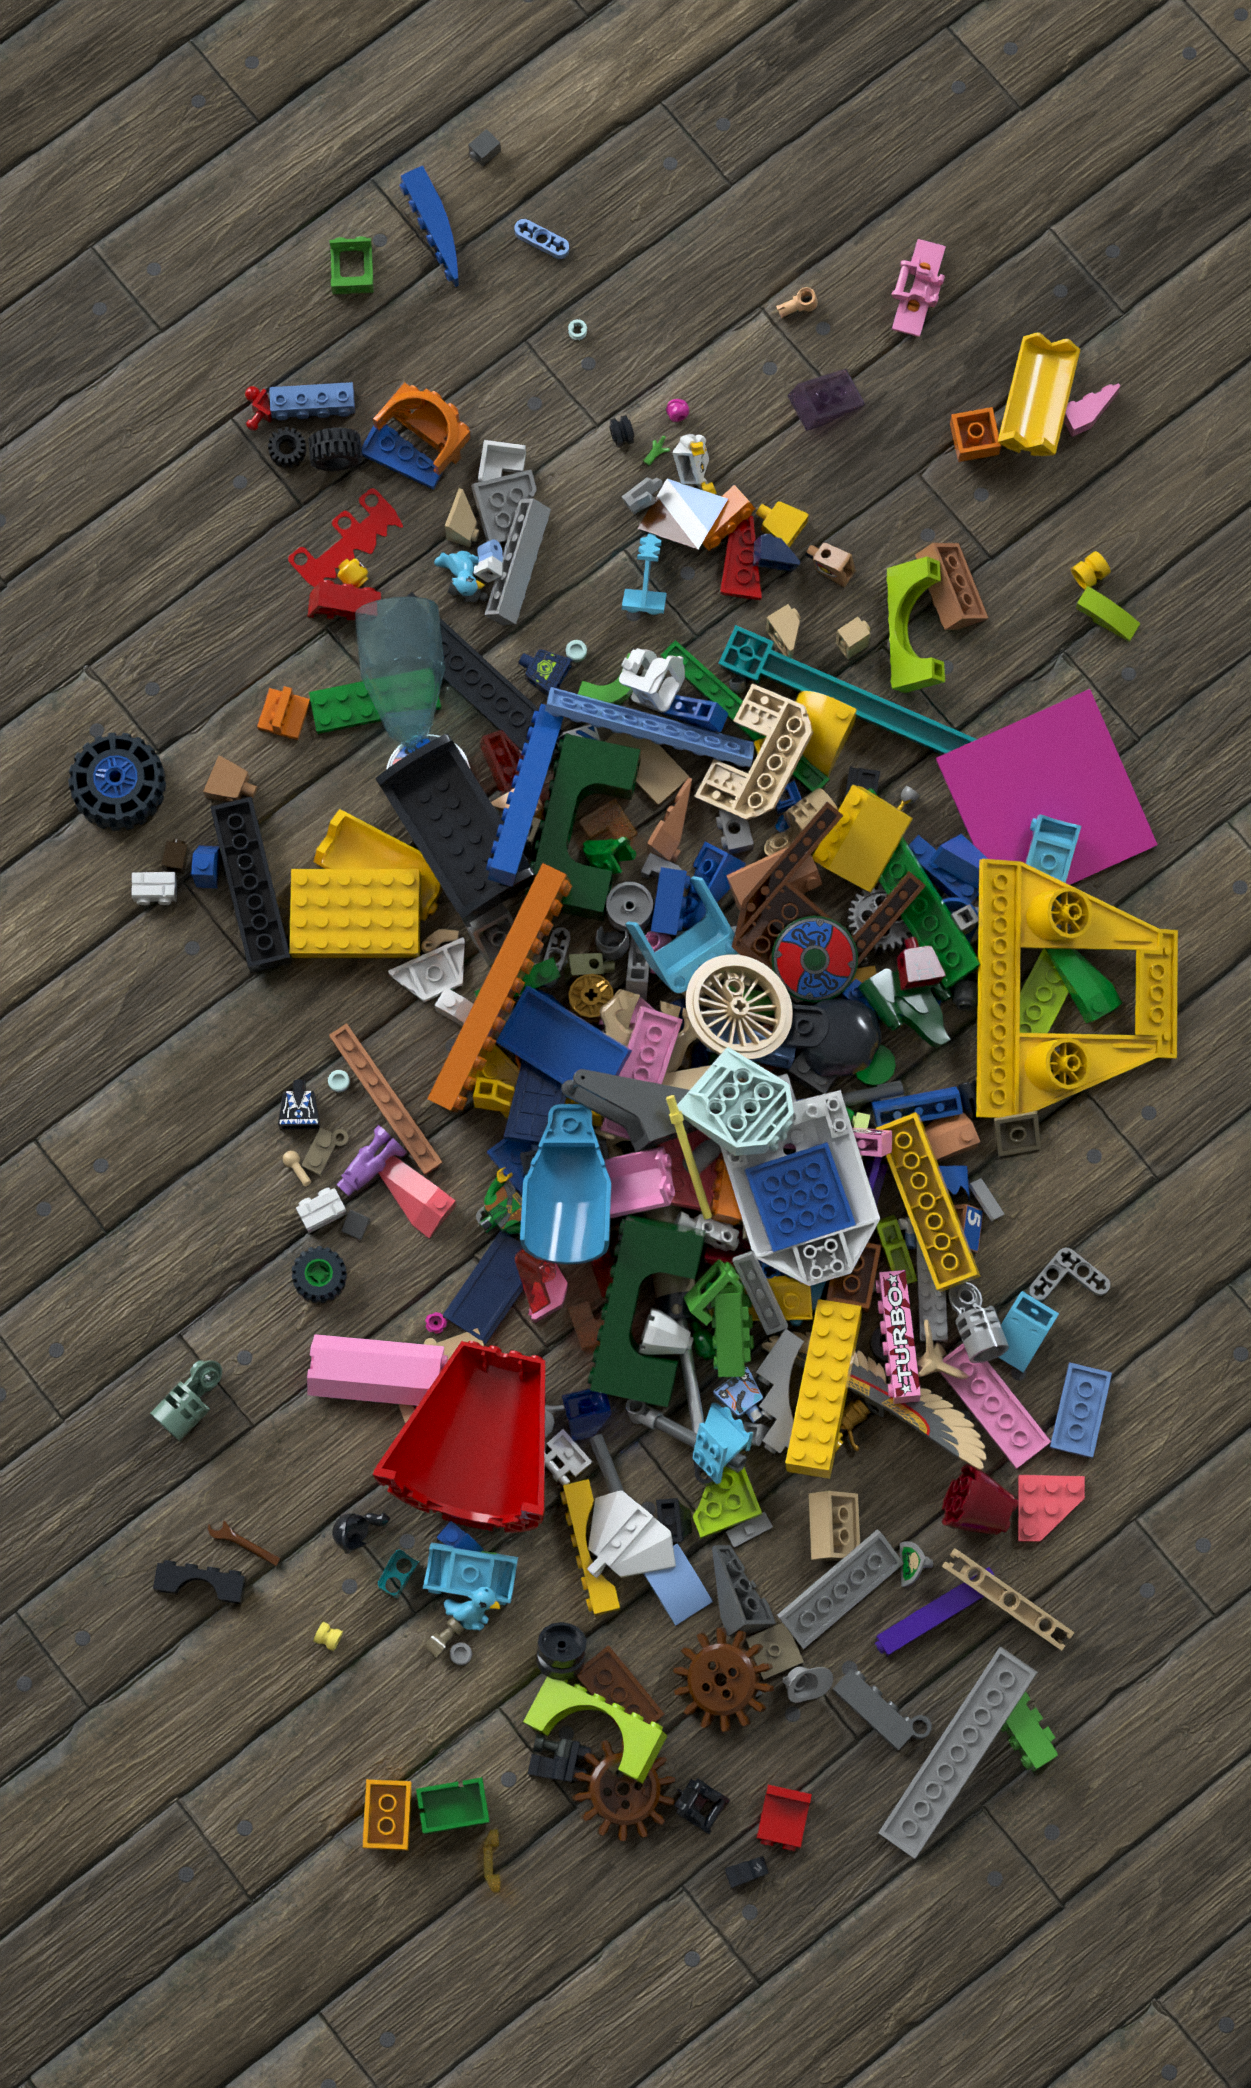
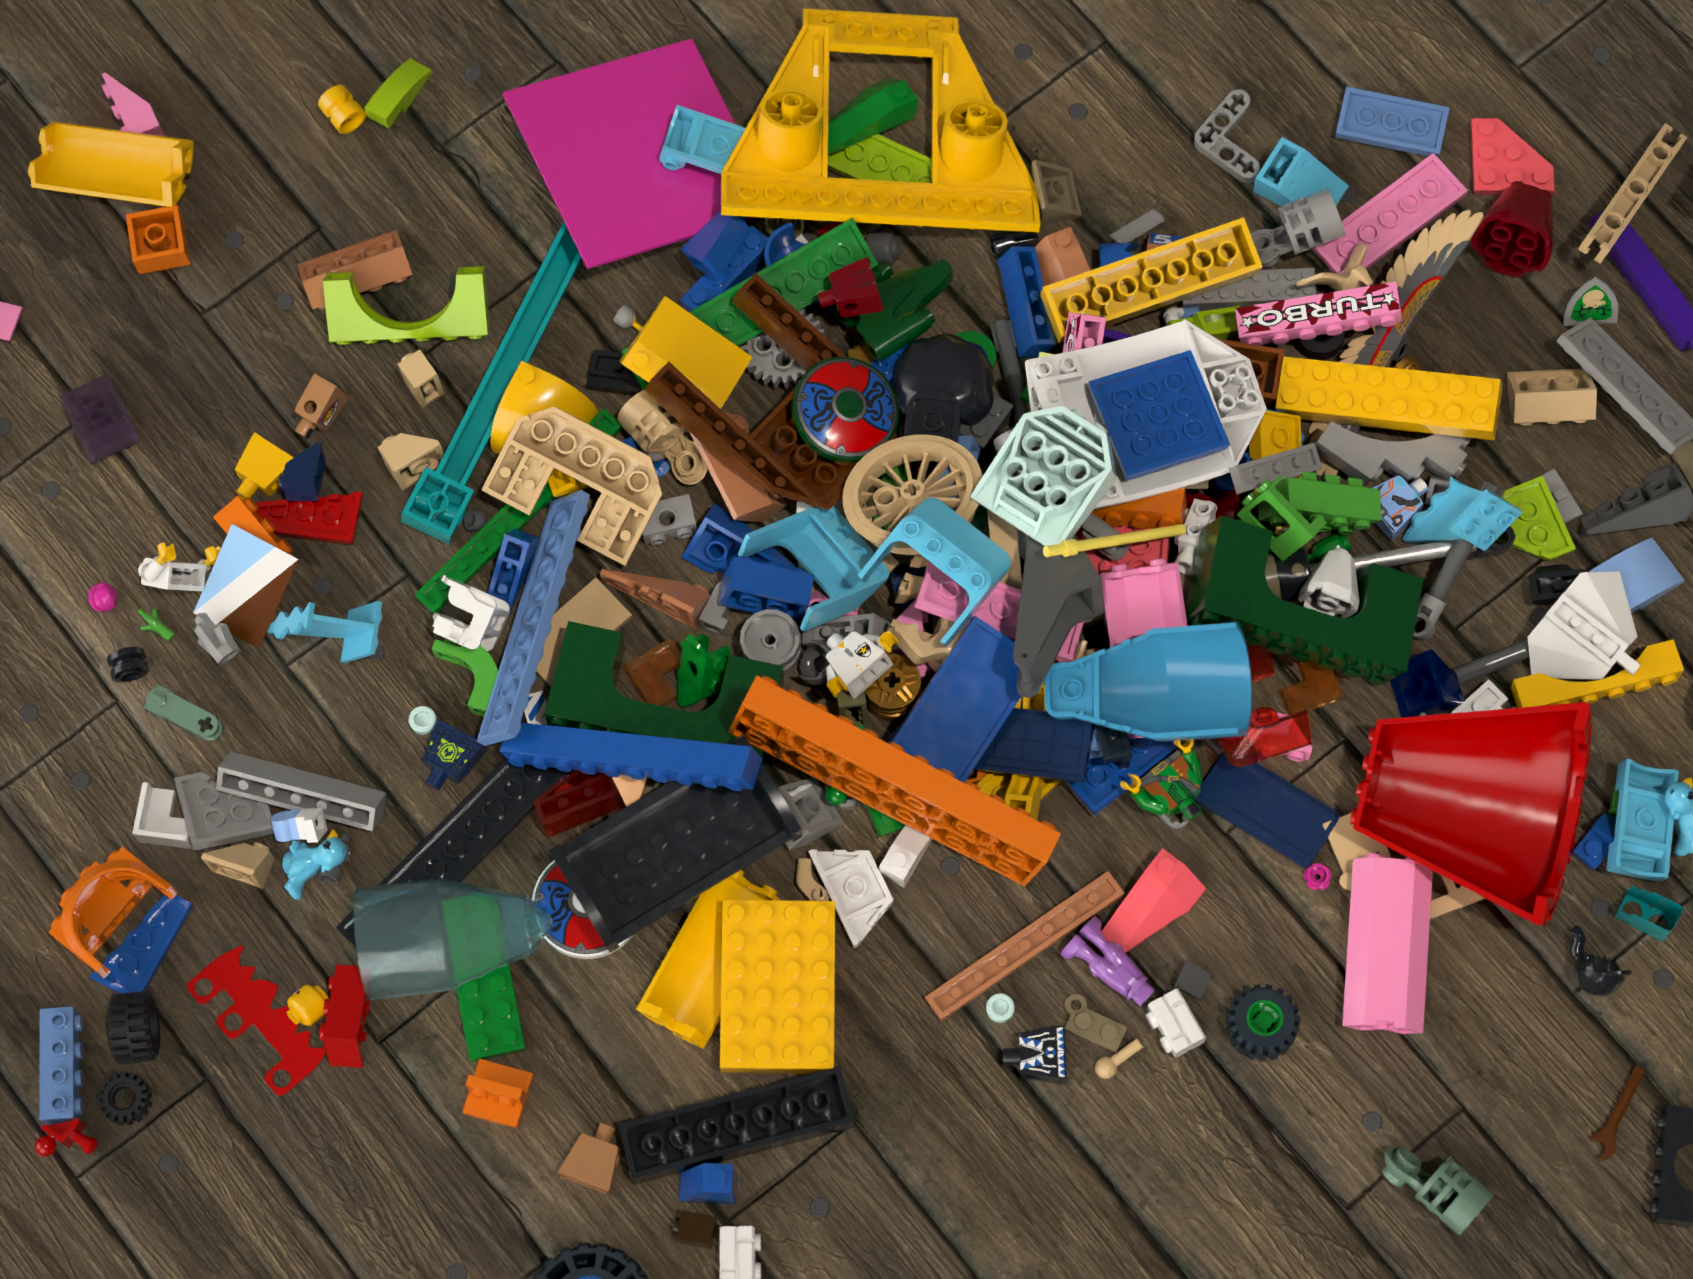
camera: 85 degrees left, 5 degrees down
(582, 473) = (182, 713): none -> sand green piece
(602, 965) = (857, 661): none -> white torso
(679, 1031) = (954, 549): none -> medium azure windscreen
(965, 919) = (793, 241): light grey leg -> none

